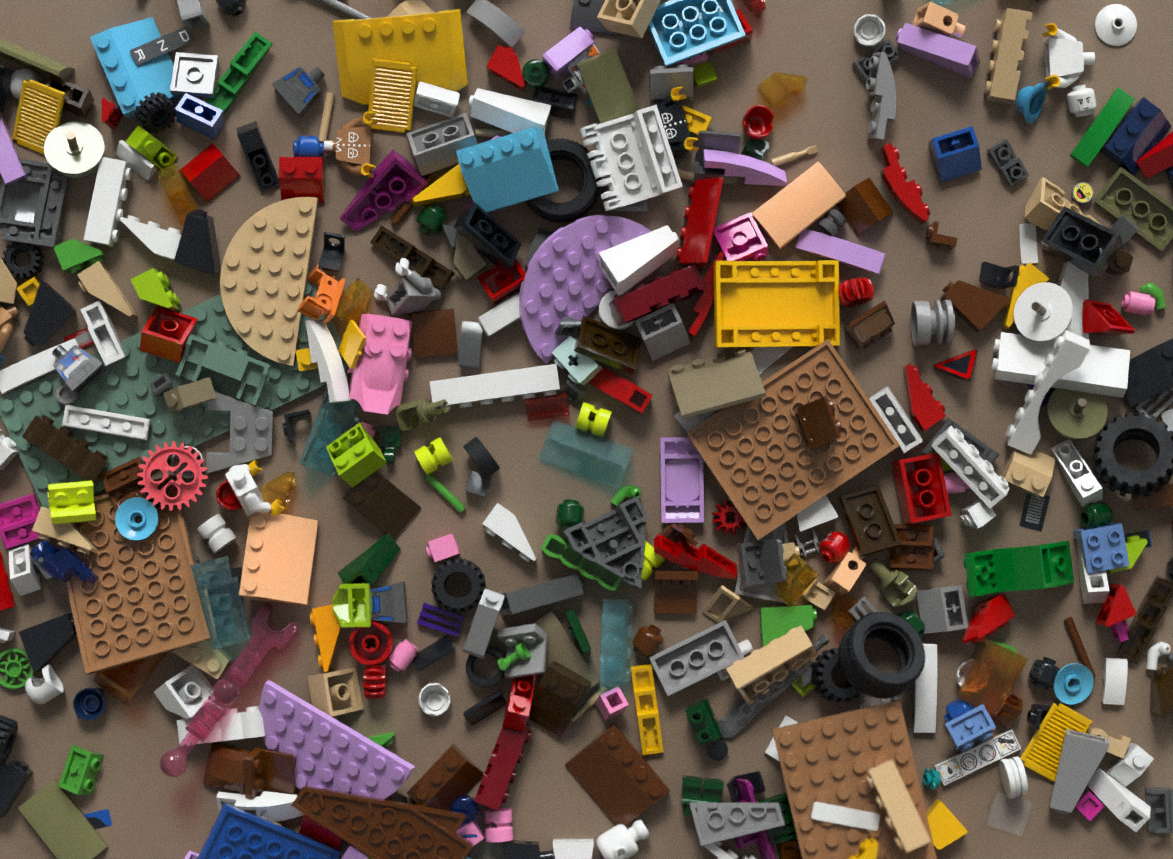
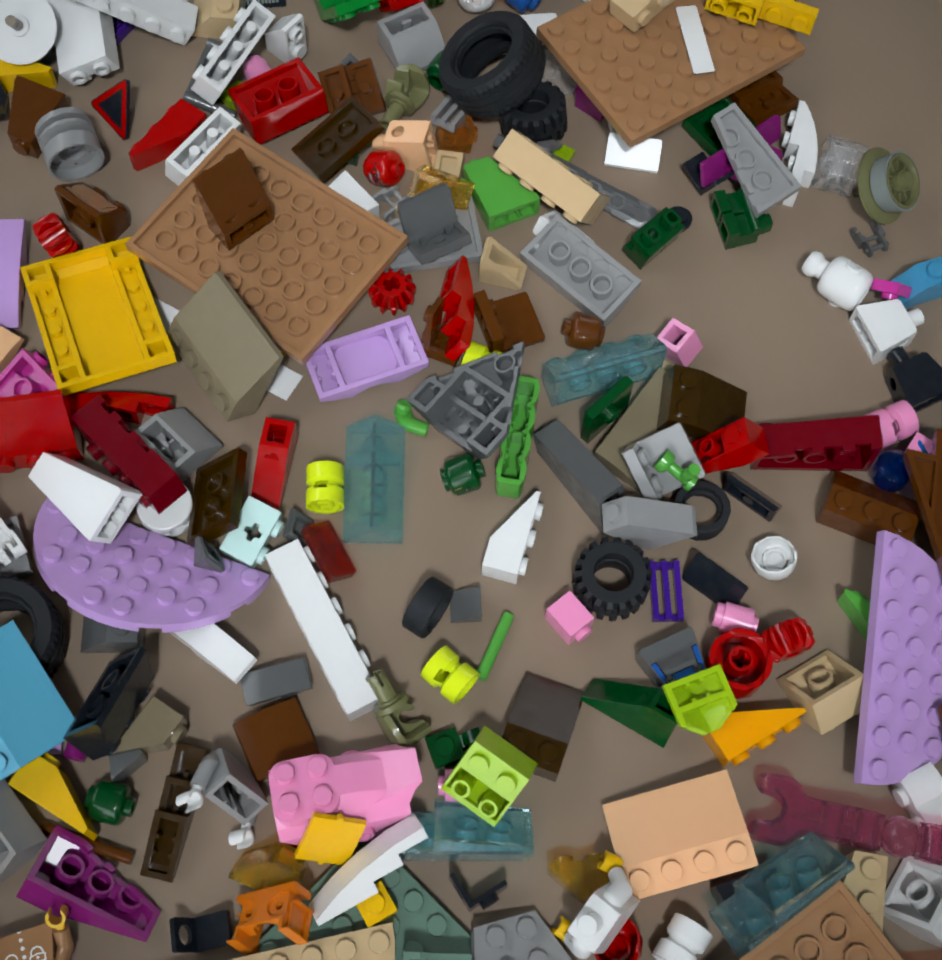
camera: 110 degrees left, 20 degrees down
(502, 282) = (174, 669): red slope -> none
(617, 776) = (762, 312): reddish brown slope -> none
(647, 709) = (675, 302): yellow slope -> none

